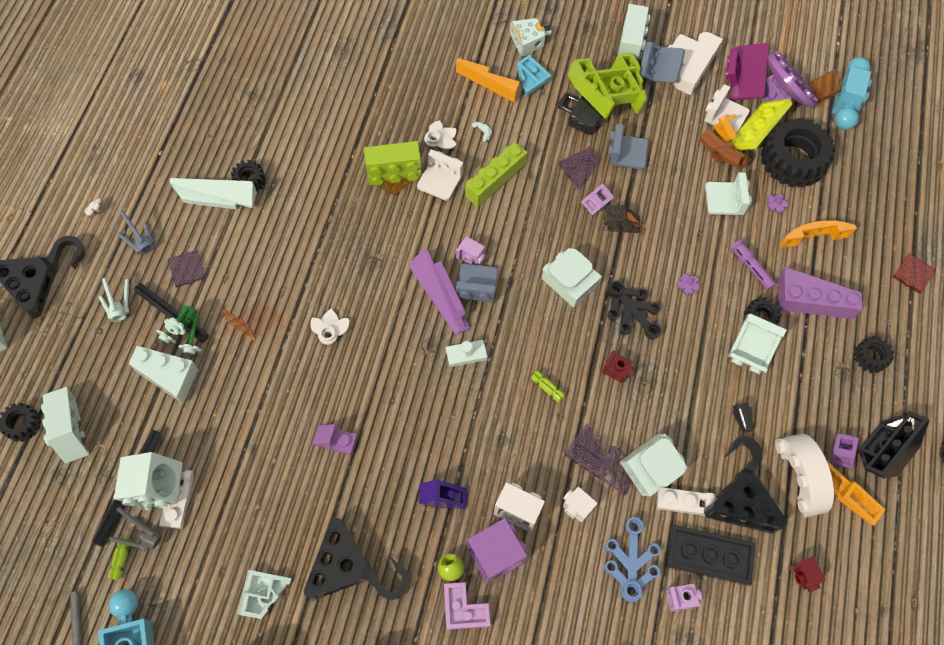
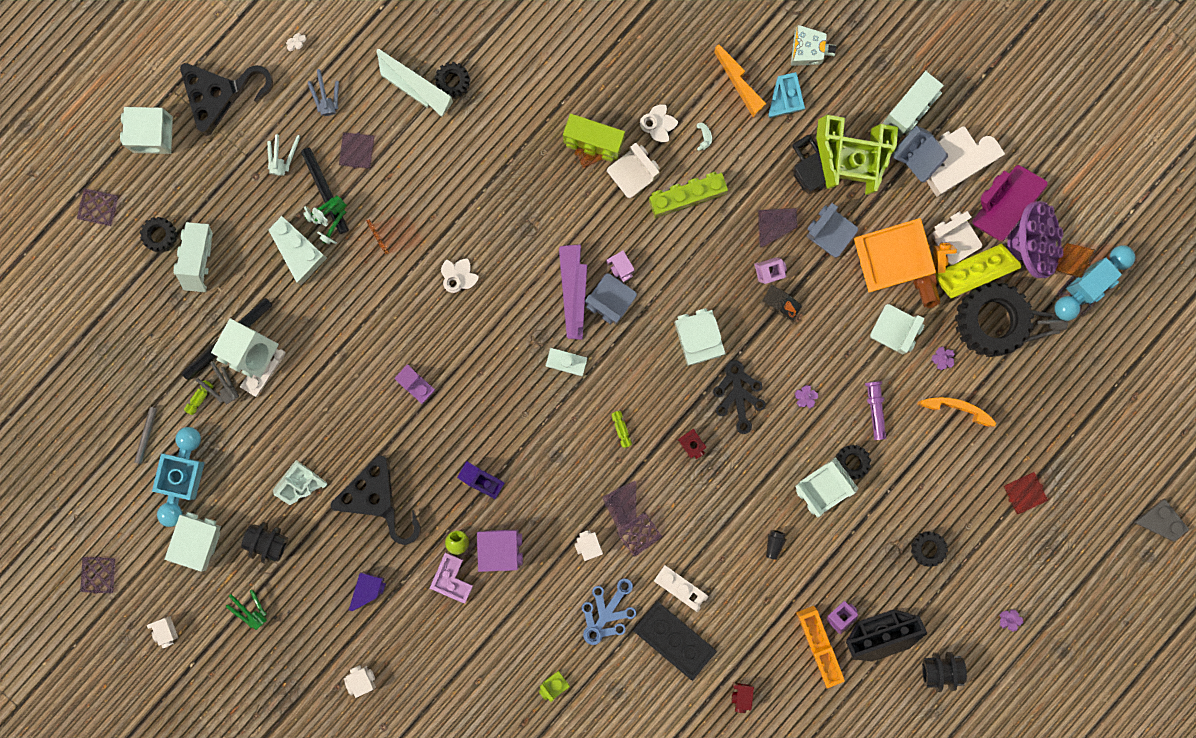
camera: 30 degrees right, 20 degrees up
(518, 506) = (536, 524): white brick -> none
(654, 464) = (670, 546): light aqua brick -> none
(677, 601) = (627, 655): lavender brick -> none
(689, 143) = (895, 255): none -> light orange piece
(755, 504) = (741, 618): black piece -> none
(812, 473) = (797, 617): white brick -> none
(816, 296) = (910, 468): medium lavender wedge -> none
(843, 137) = (1054, 323): none -> dark grey plant

